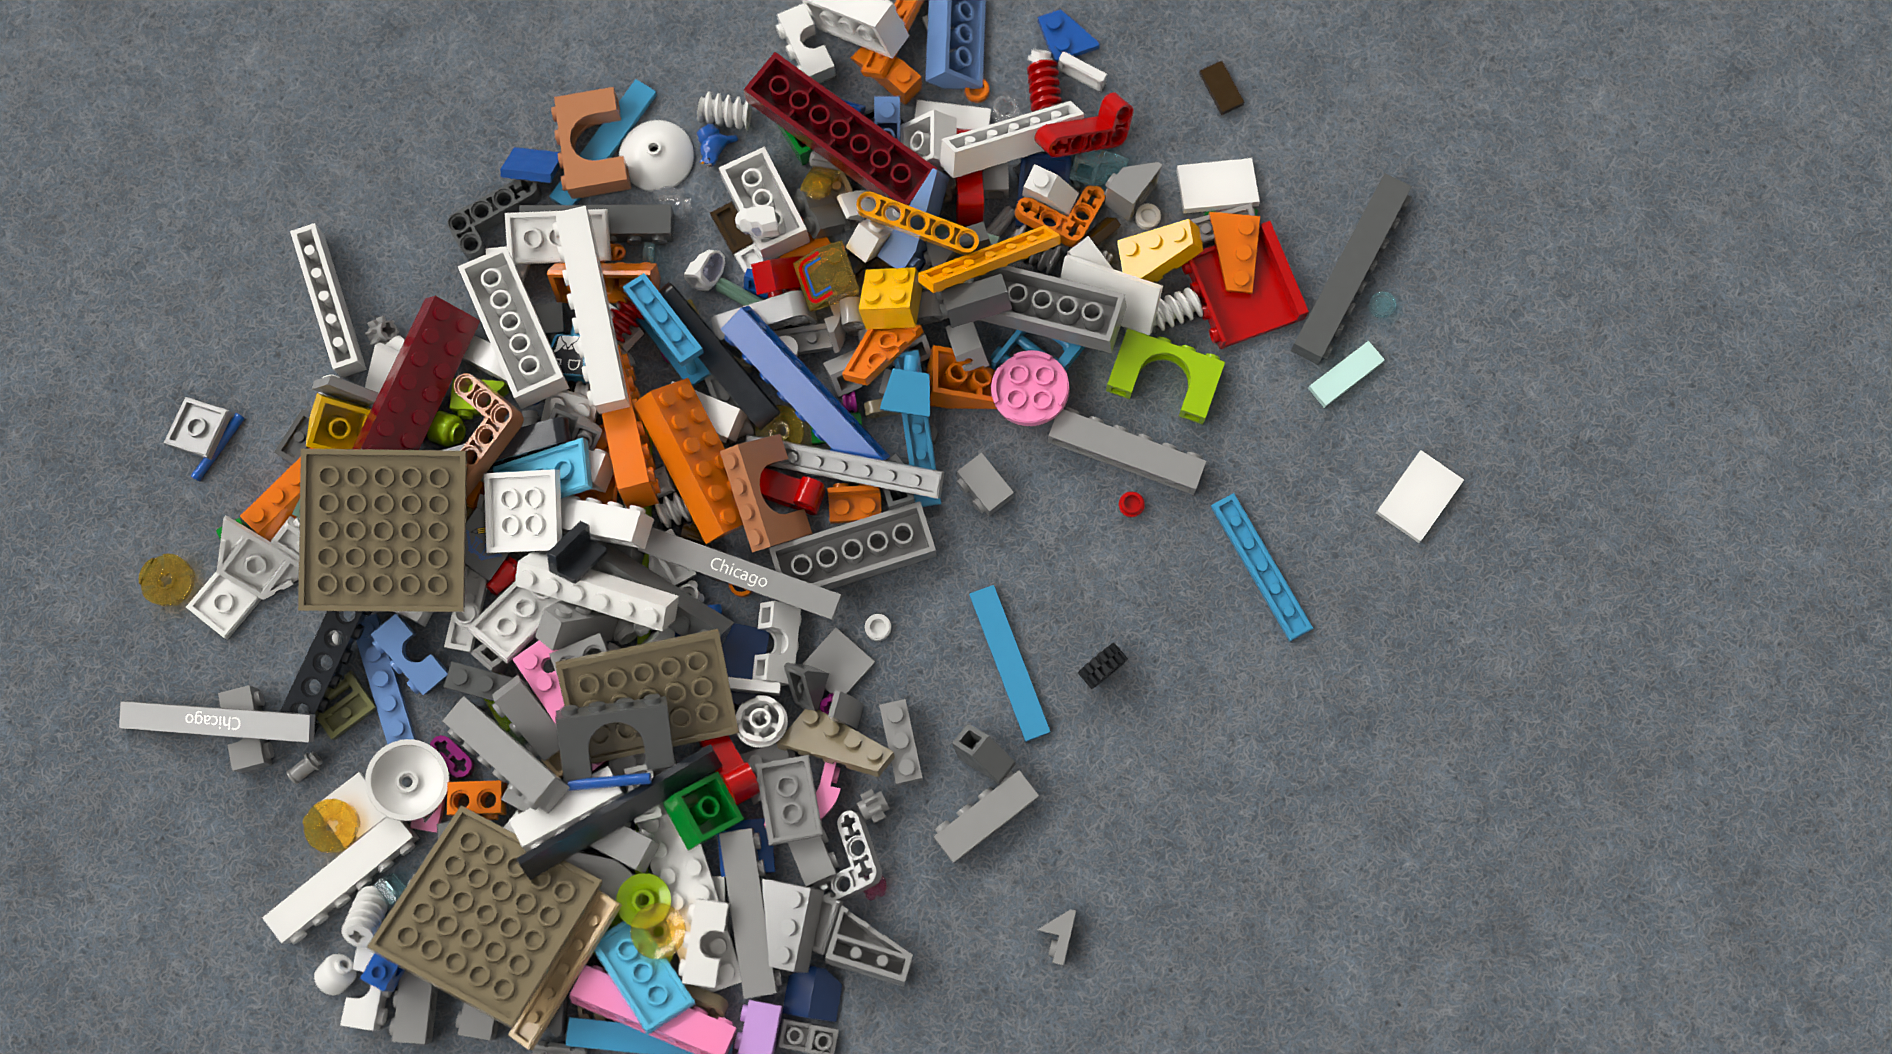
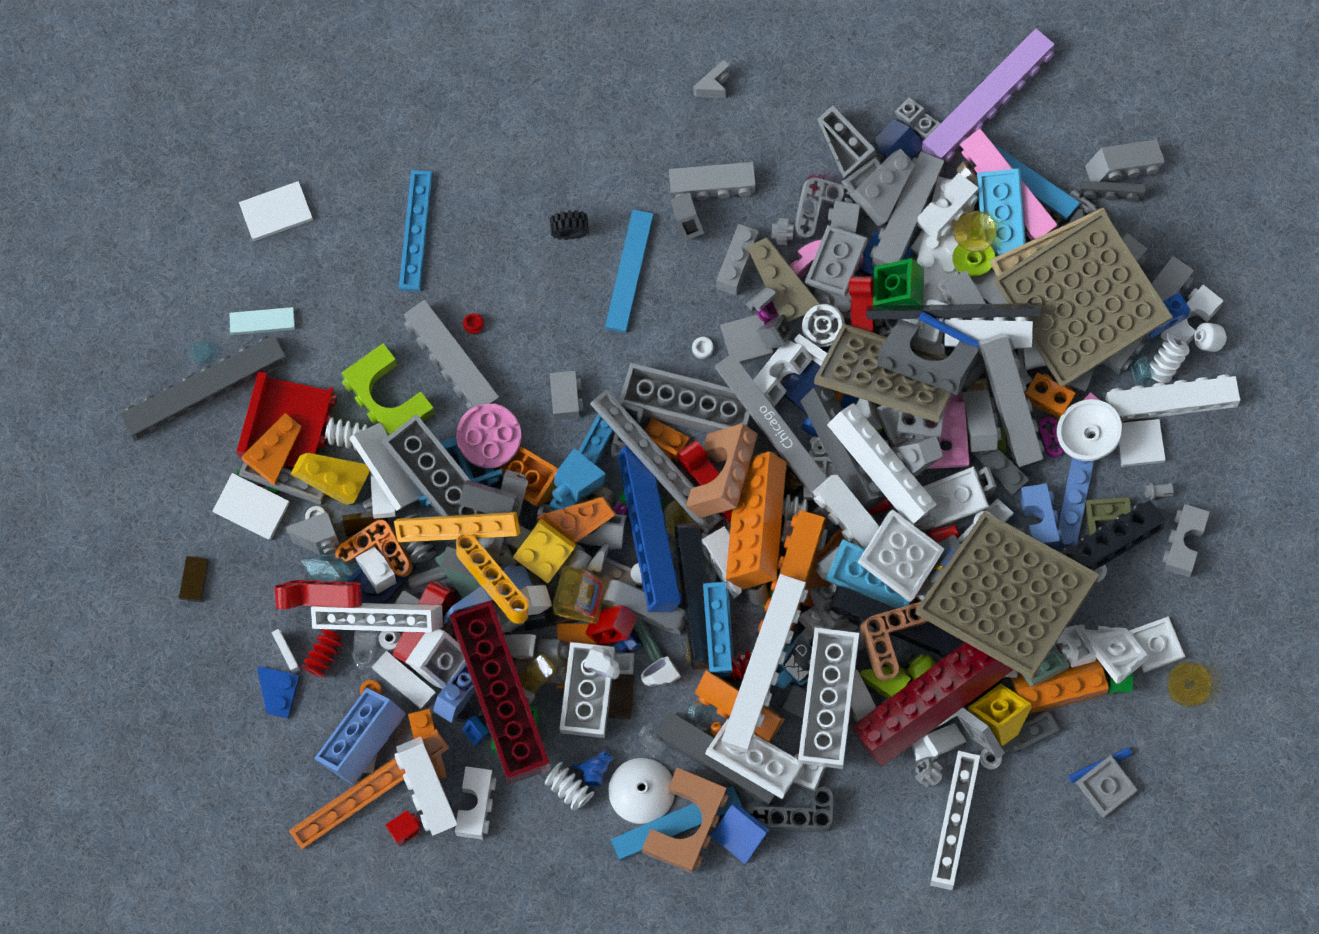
camera: 145 degrees left, 5 degrees down
(217, 721) = (1203, 550): tile -> none
(346, 829) = (1168, 427): clear yellow plate -> none
(575, 554) = (880, 490): black panel -> none
(1037, 54) = (308, 682): white plate -> none

